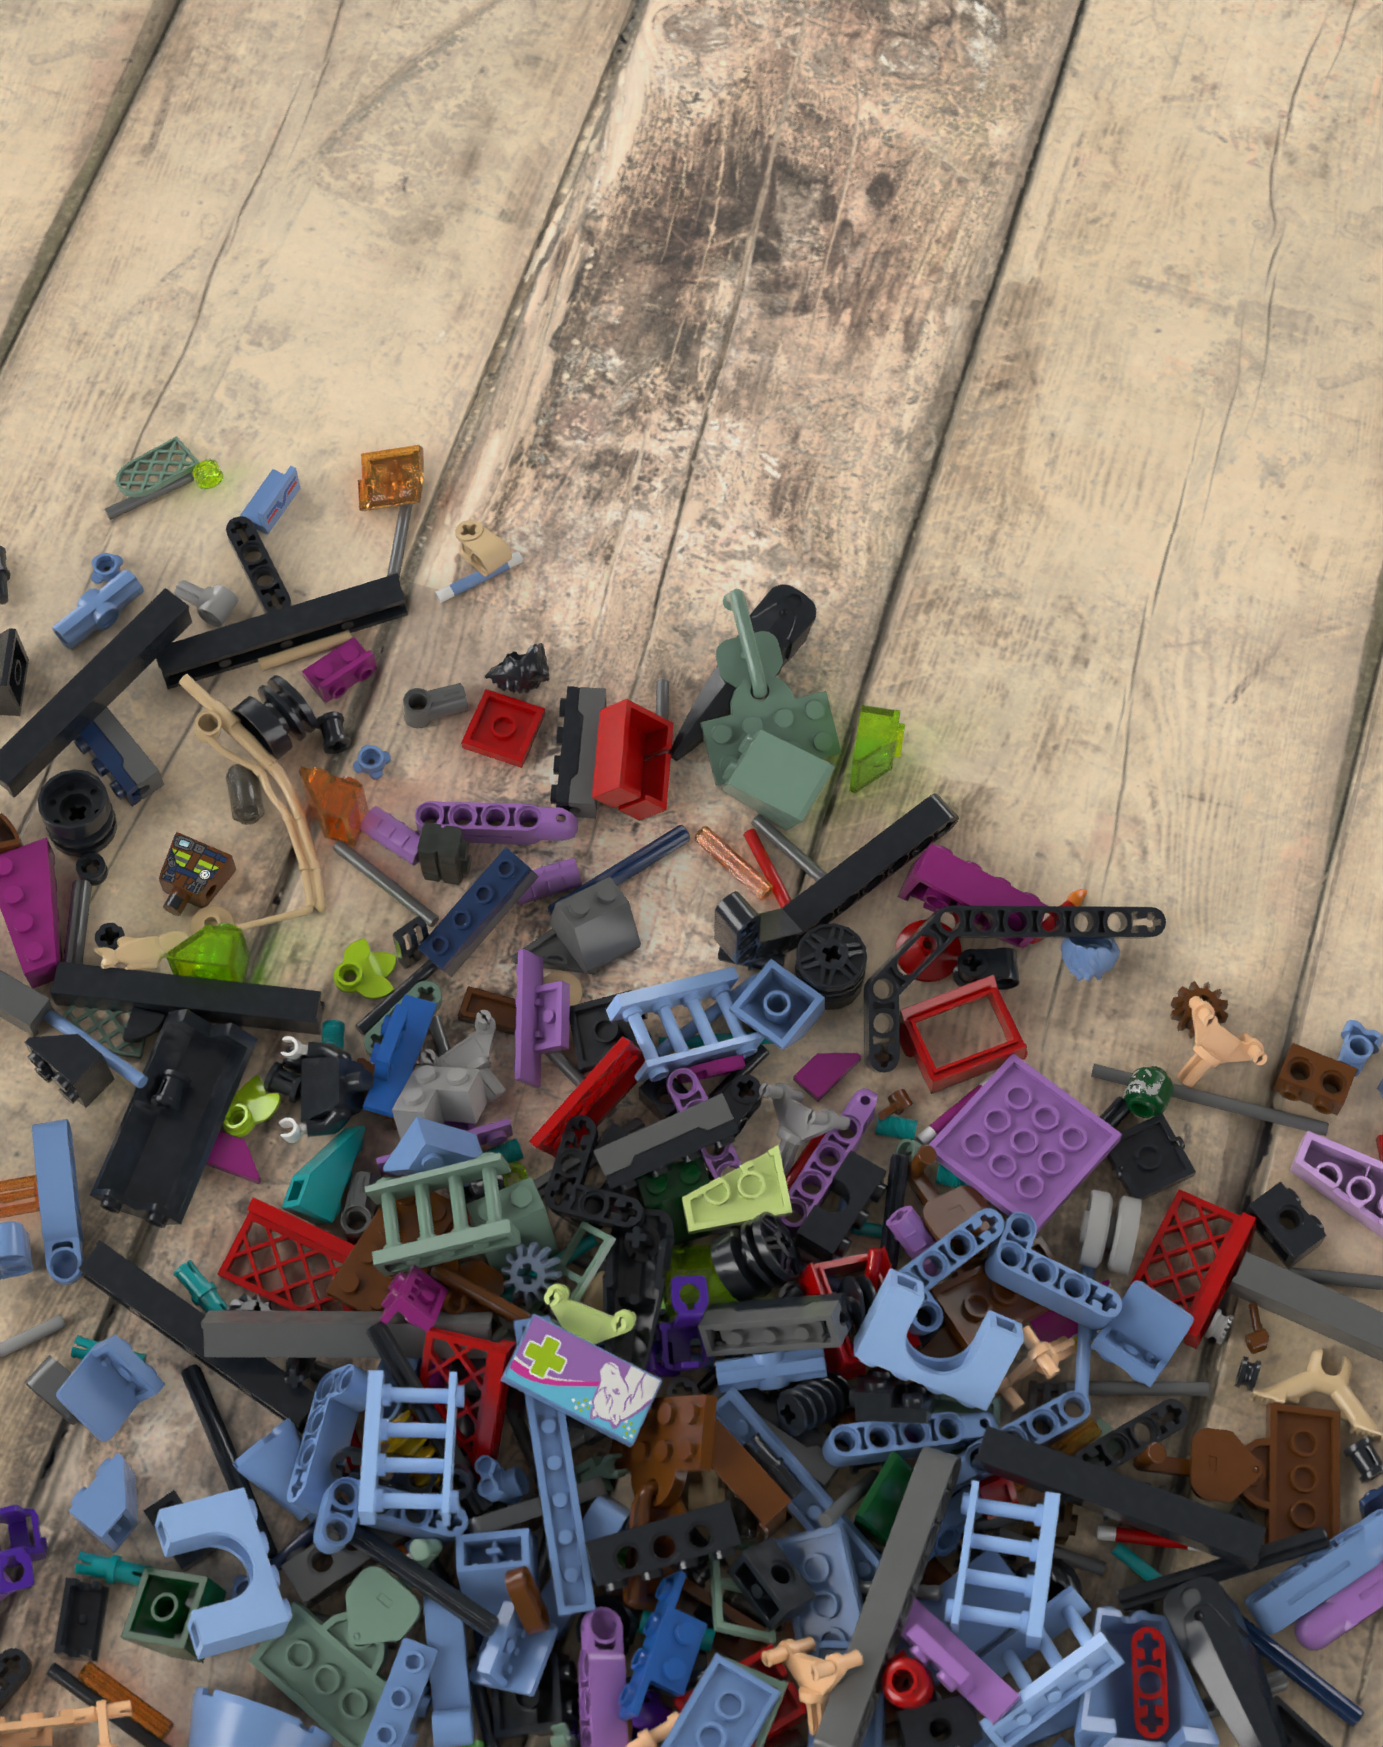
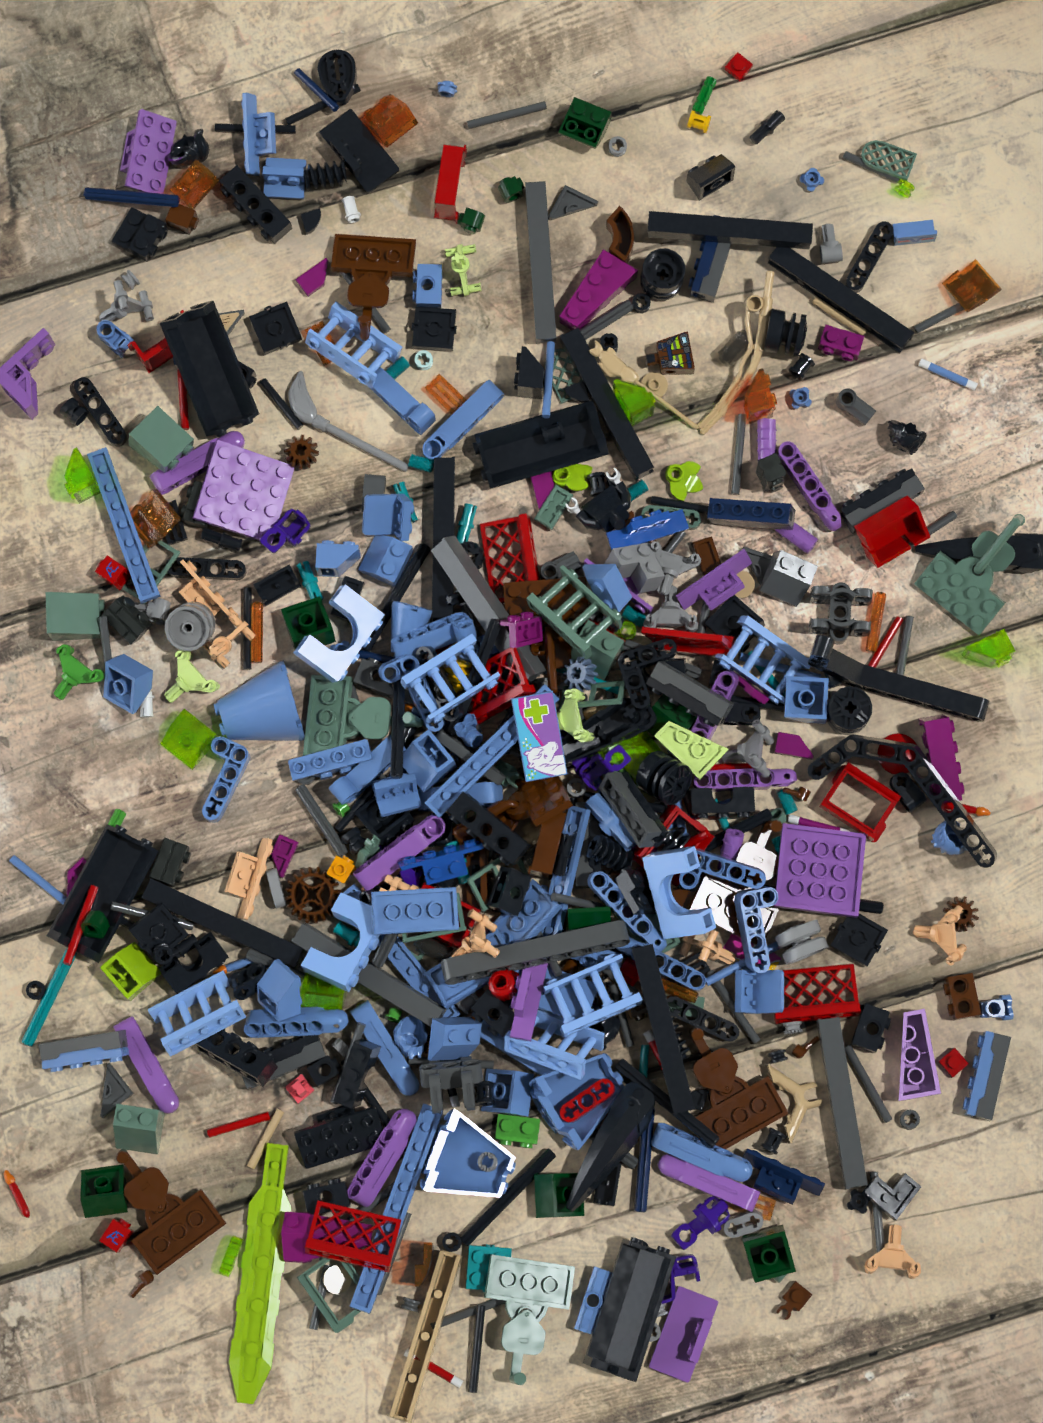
camera: 60 degrees right, 15 degrees up
(71, 1296) = (421, 464): none -> teal piece
(98, 609) = (784, 194): medium blue piece -> none
(165, 1436) = (386, 559): none -> medium blue slope
(271, 1159) = (553, 507): none -> sand green plate
(319, 1184) = (560, 539): teal slope -> none
(422, 933) = (711, 494): black tile -> none
(482, 547) = (963, 363): tan piece -> none
(503, 728) = (868, 450): red tile -> none
(527, 1600) = (421, 783): reddish brown beam -> none
(536, 1105) = (671, 614): none -> light grey axle
(638, 860) = (835, 570): dark blue axle -> none
(680, 866) = (857, 597): none -> dark grey piece
(776, 779) = (933, 612): sand green slope -> none
(1148, 1091) = (893, 915): dark green head -> none
(1223, 1103) = (915, 949): dark grey piece -> none

